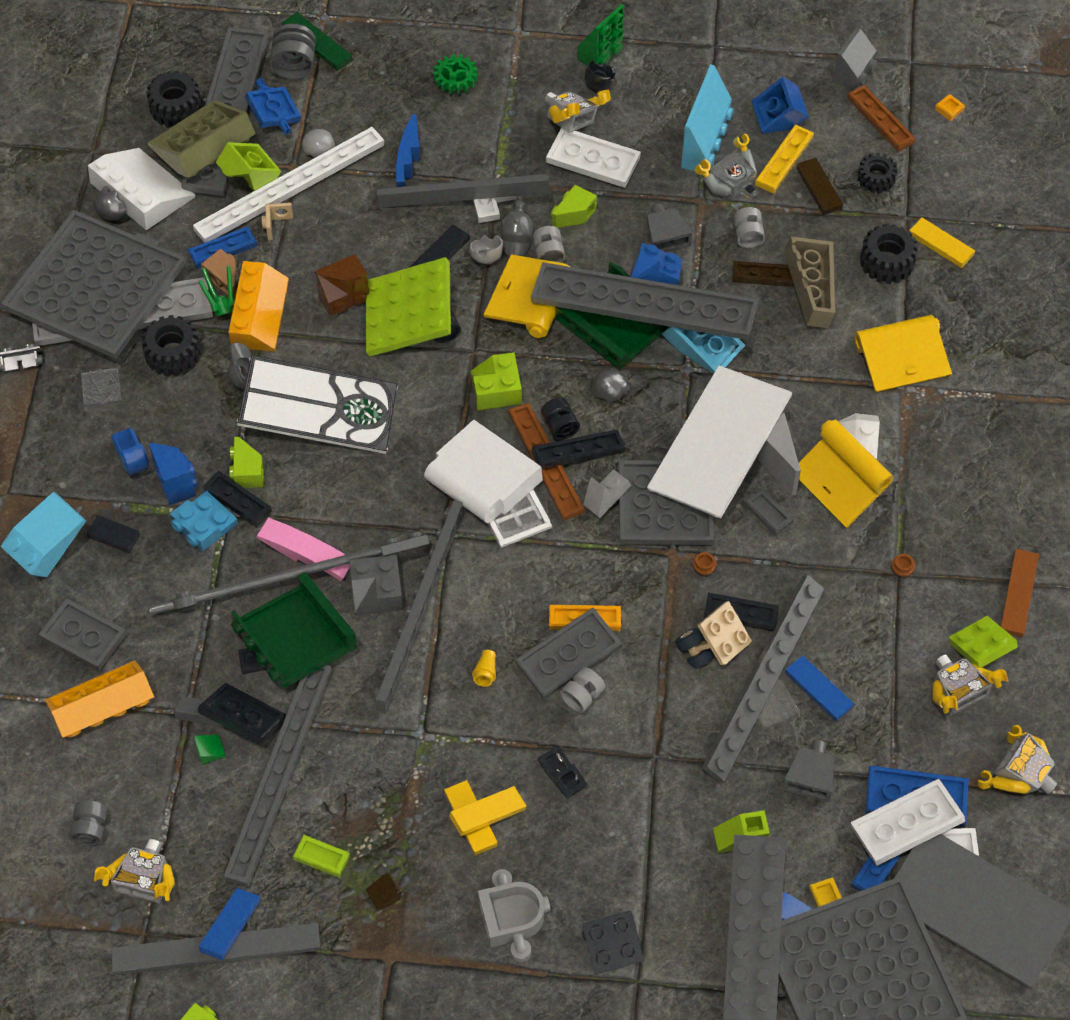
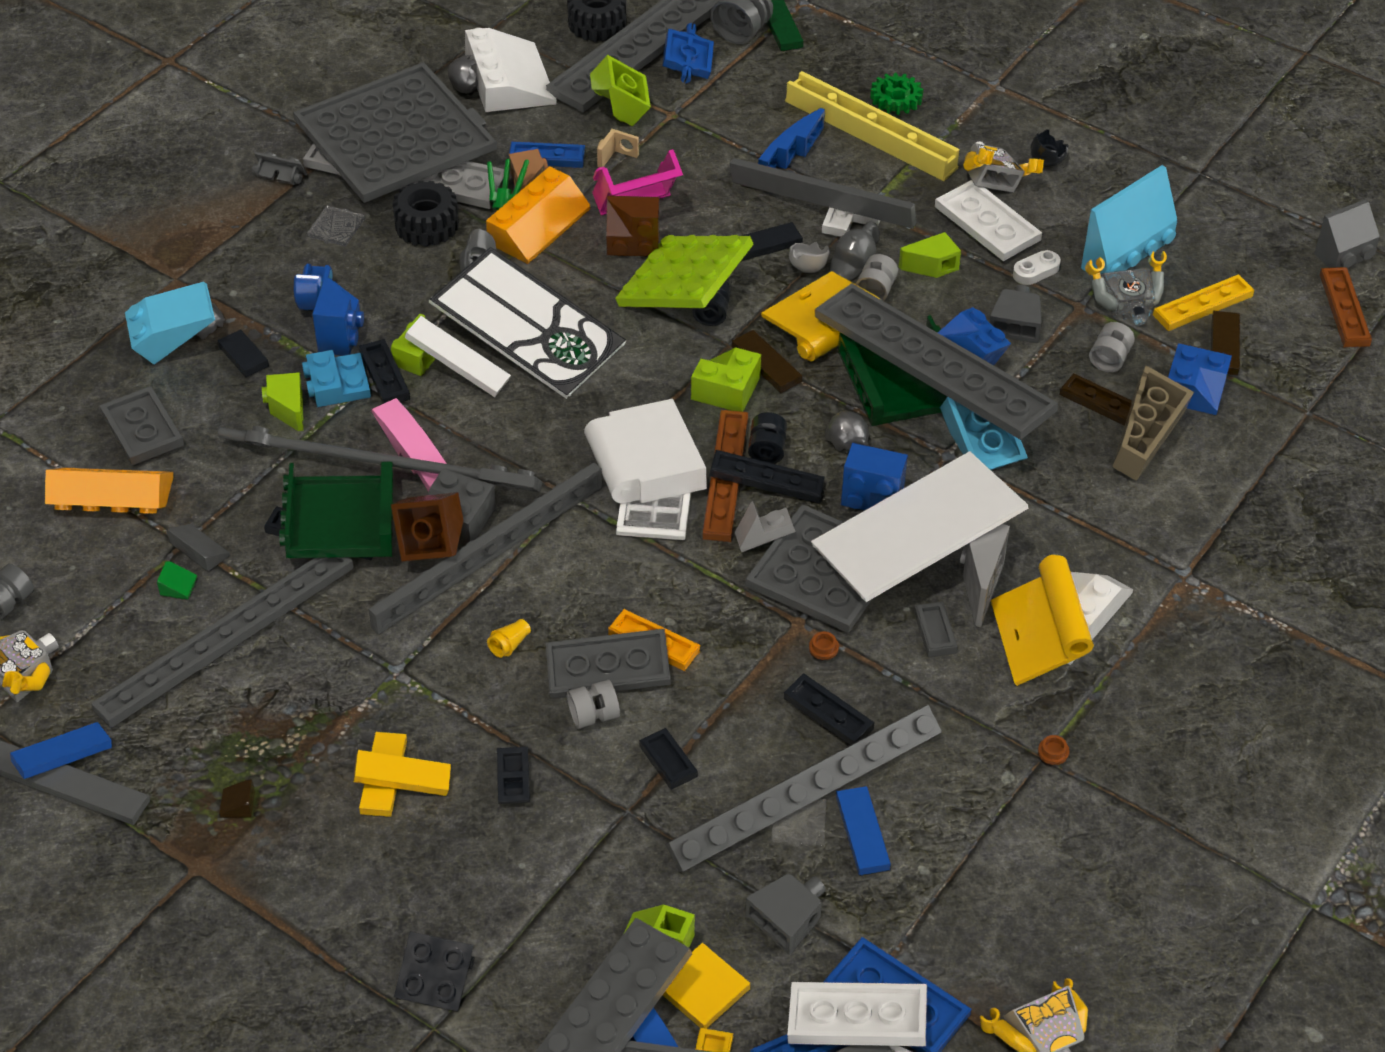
camera: 30 degrees right, 10 degrees down
(180, 558) = (285, 398): none -> lime slope
(202, 137) = (585, 50): olive slope -> none
(242, 713) = (229, 562): black tile -> none
(288, 185) = (656, 125): white plate -> none
(288, 459) = (457, 356): none -> white tile
(317, 142) = (710, 103): light grey hair -> none
(321, 856) = (205, 735): lime tile -> none
(323, 246) = (649, 186): none -> dark pink piece
(376, 612) = (428, 526): none -> reddish brown slope
(456, 111) = (874, 126): none -> light yellow tile
(512, 913) = (349, 888): light grey piece -> none
(526, 357) = (773, 365): none -> dark brown tile
(603, 40) = (1074, 112): green slope -> none
(654, 178) = (1036, 267): none -> white plate
(656, 703) = (668, 758): none -> black tile
(657, 415) = (871, 476): none -> blue slope
(722, 634) = (786, 718): tan plate -> none
(780, 107) = (1232, 250): blue slope -> none
(800, 854) = (706, 987): none -> yellow tile
(822, 222) = (1203, 374): none -> blue slope
(875, 182) = (1305, 344): black tyre -> none
(891, 240) = (1257, 433): black tyre -> none
(901, 348) = (1207, 539): yellow door -> none
(942, 242) = (1332, 452): yellow tile -> none
(962, 684) = (1032, 904): torso -> none
(983, 642) = (1090, 871): lime plate -> none
(1019, 592) = (1175, 843): dark orange tile -> none

